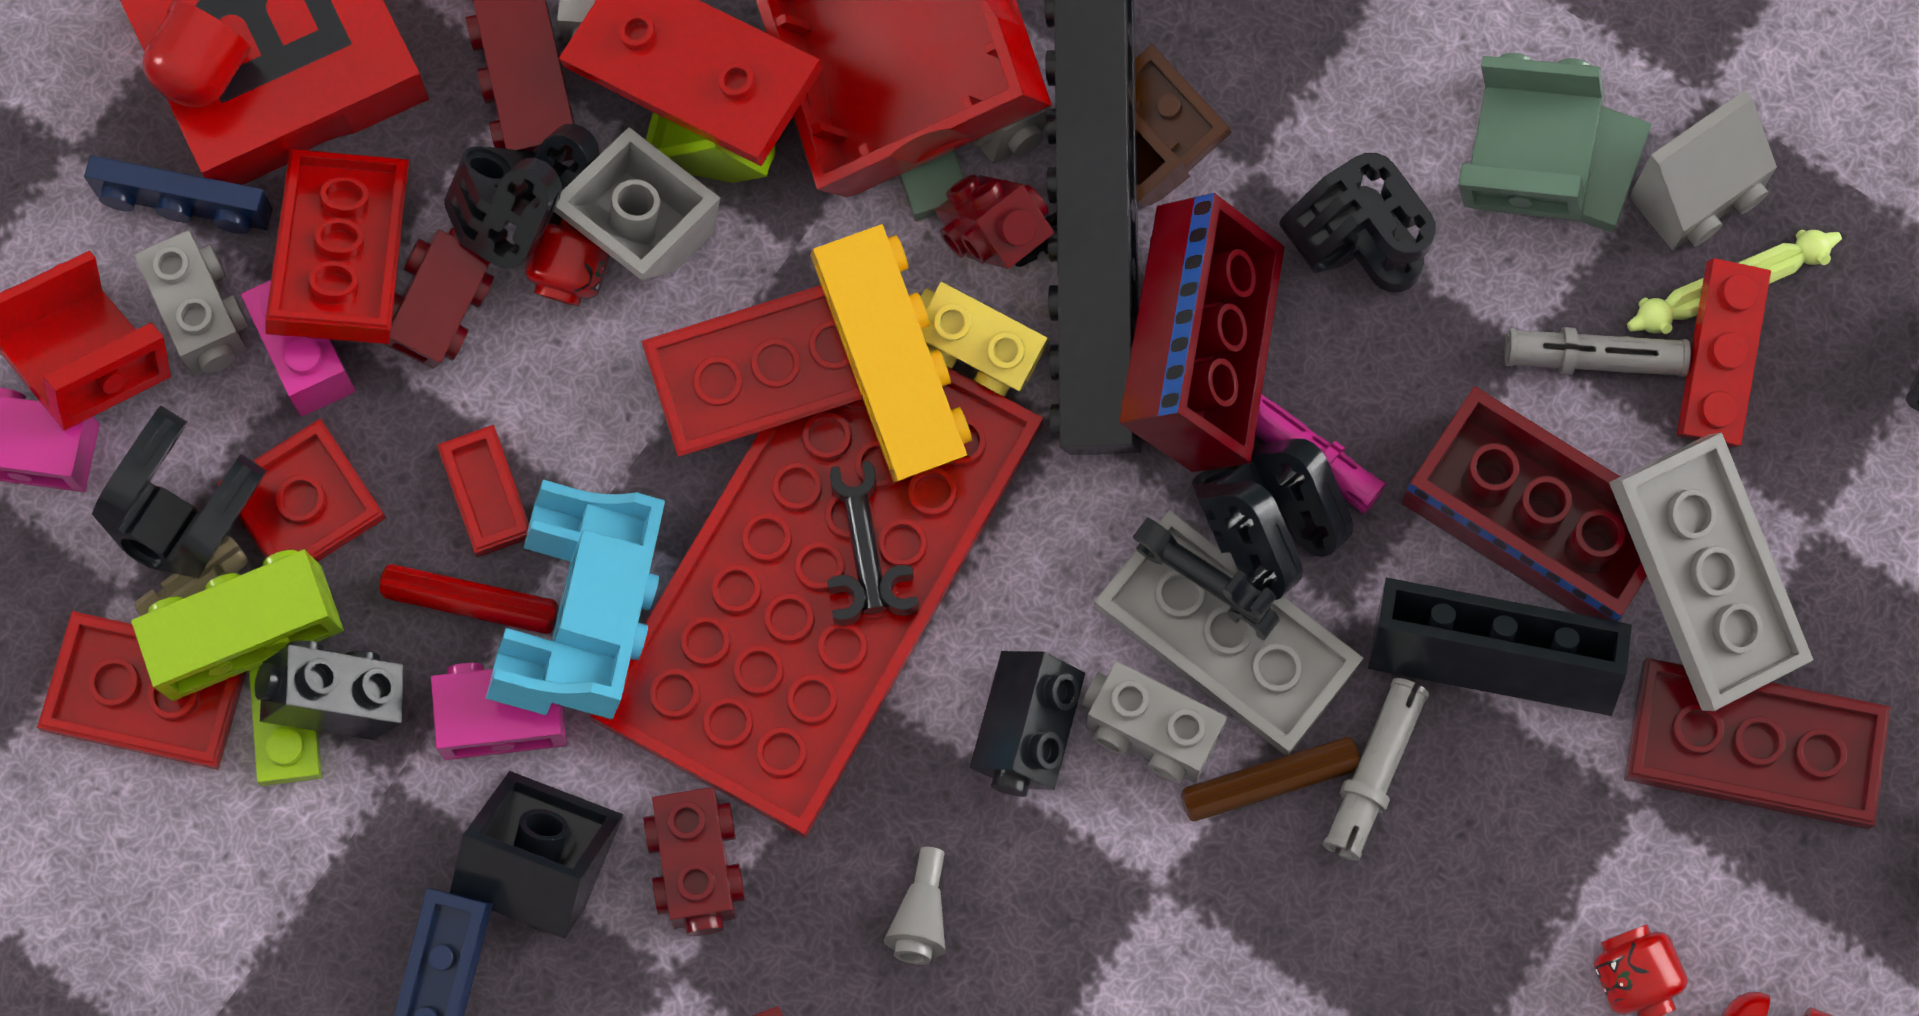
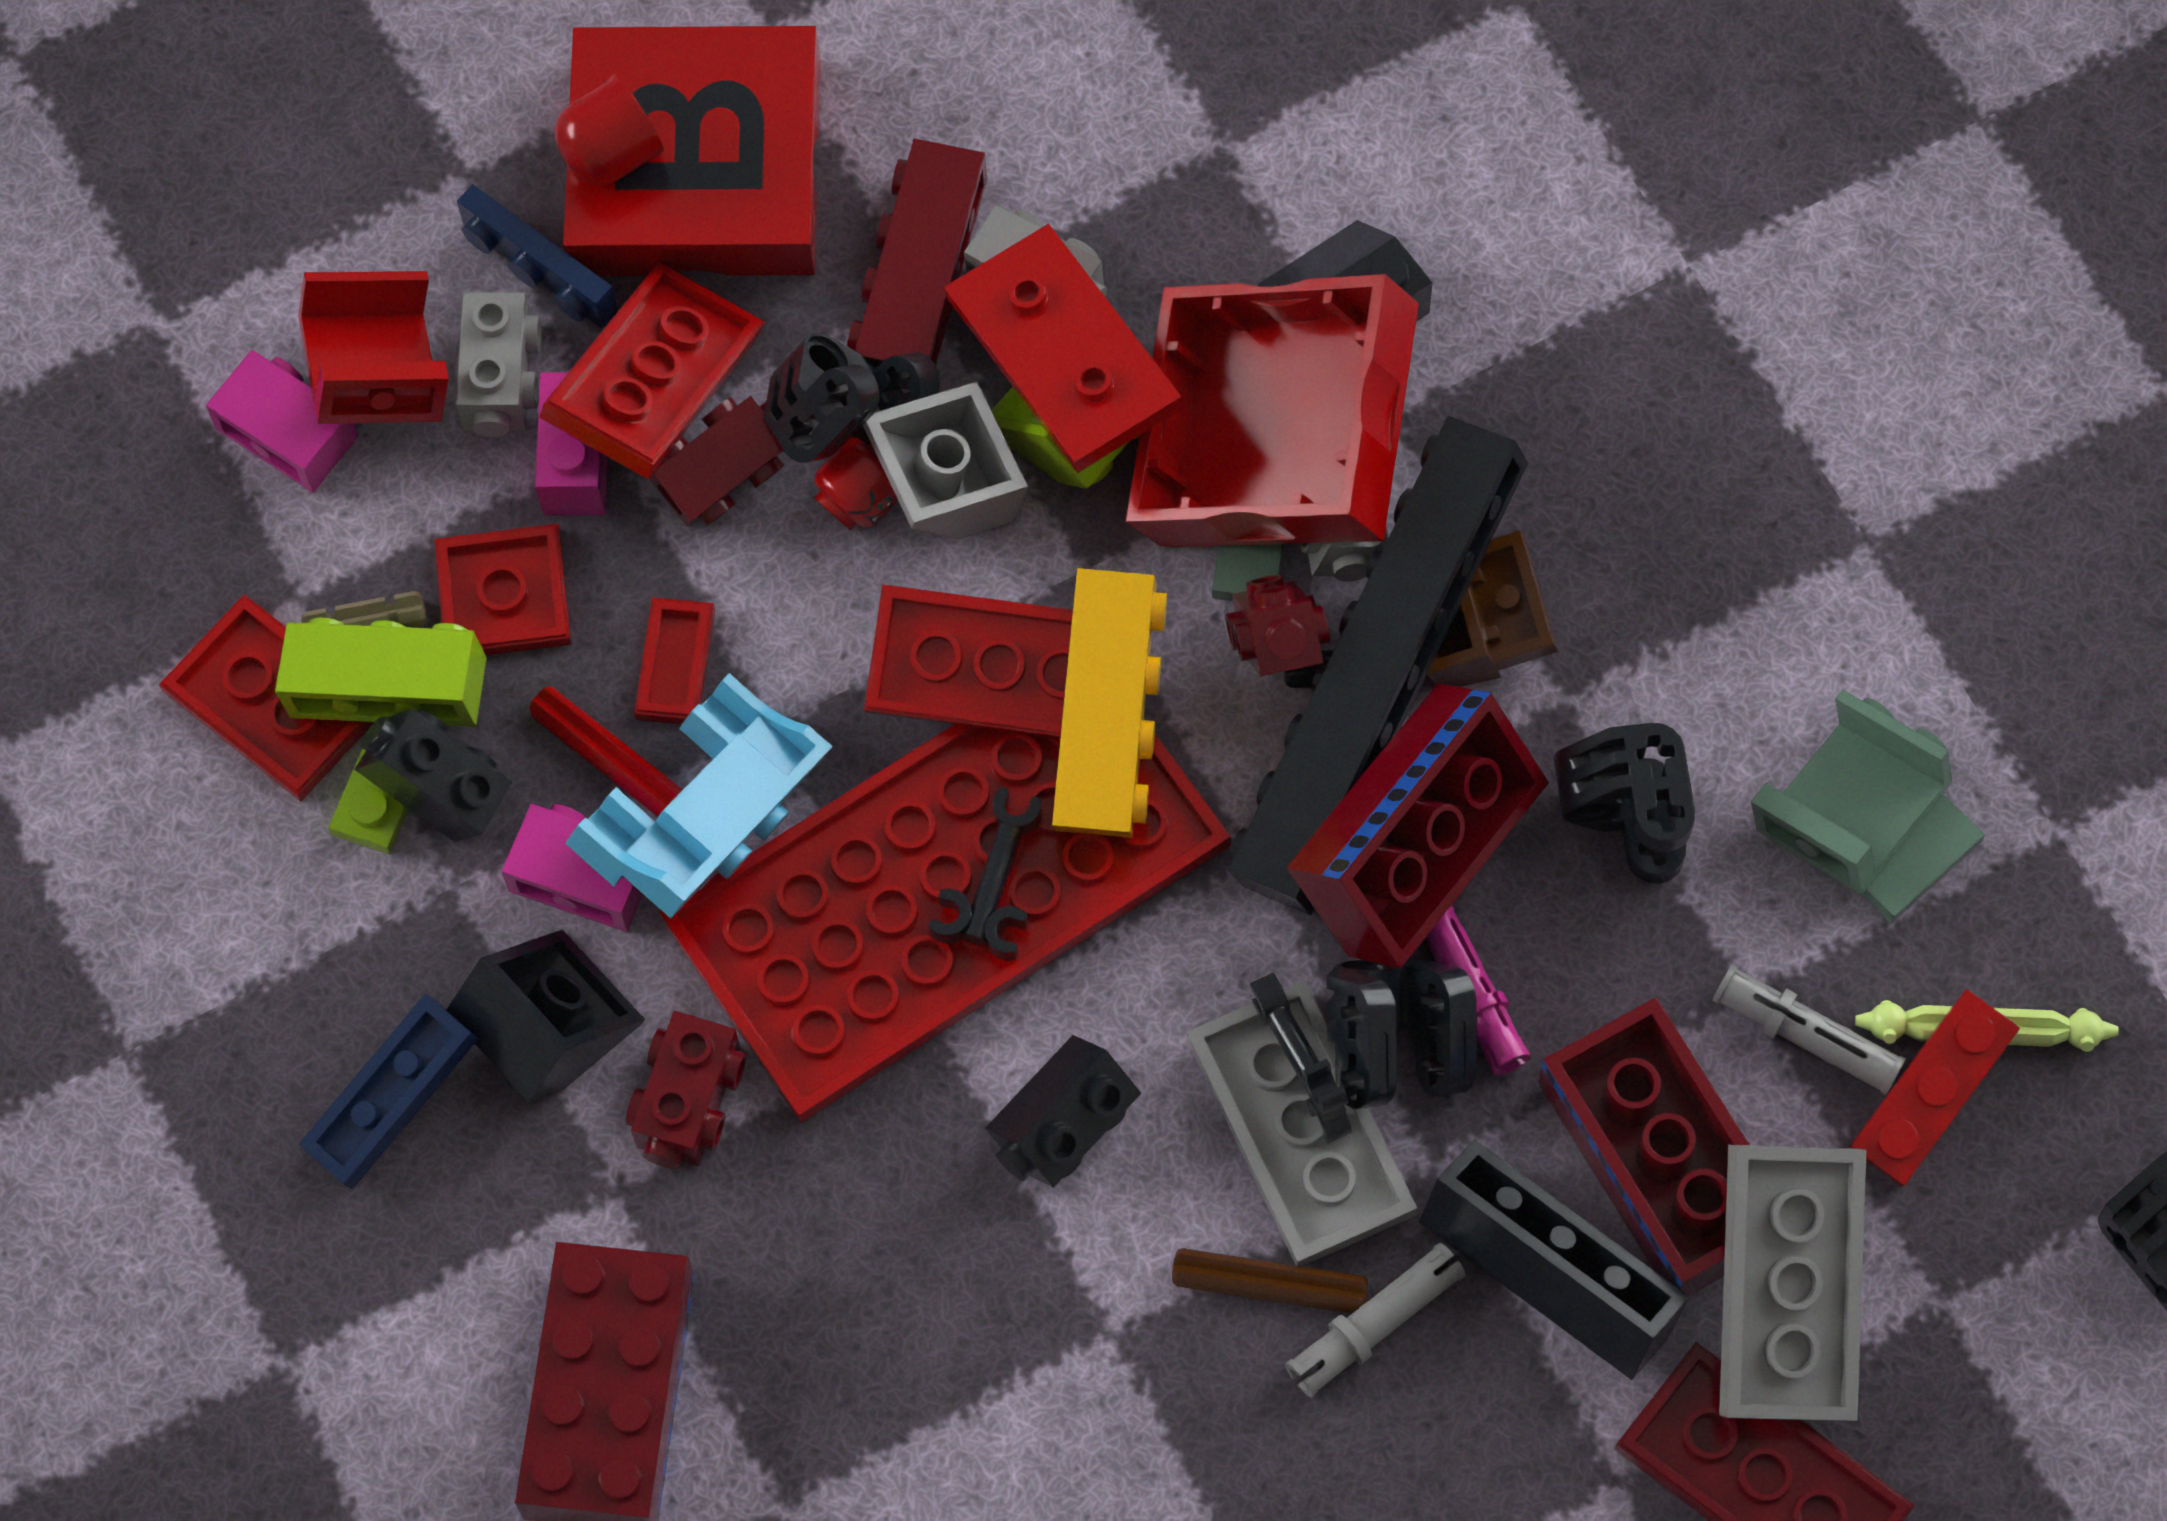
camera: 30 degrees right, 5 degrees down
(155, 523) = (358, 548): black piece -> none
(918, 925) = (861, 1252): light grey cone -> none
(983, 338) = (1210, 732): light yellow brick -> none
(1152, 722) = (1181, 1169): light grey brick -> none
(1706, 174) = (2006, 904): light grey slope -> none

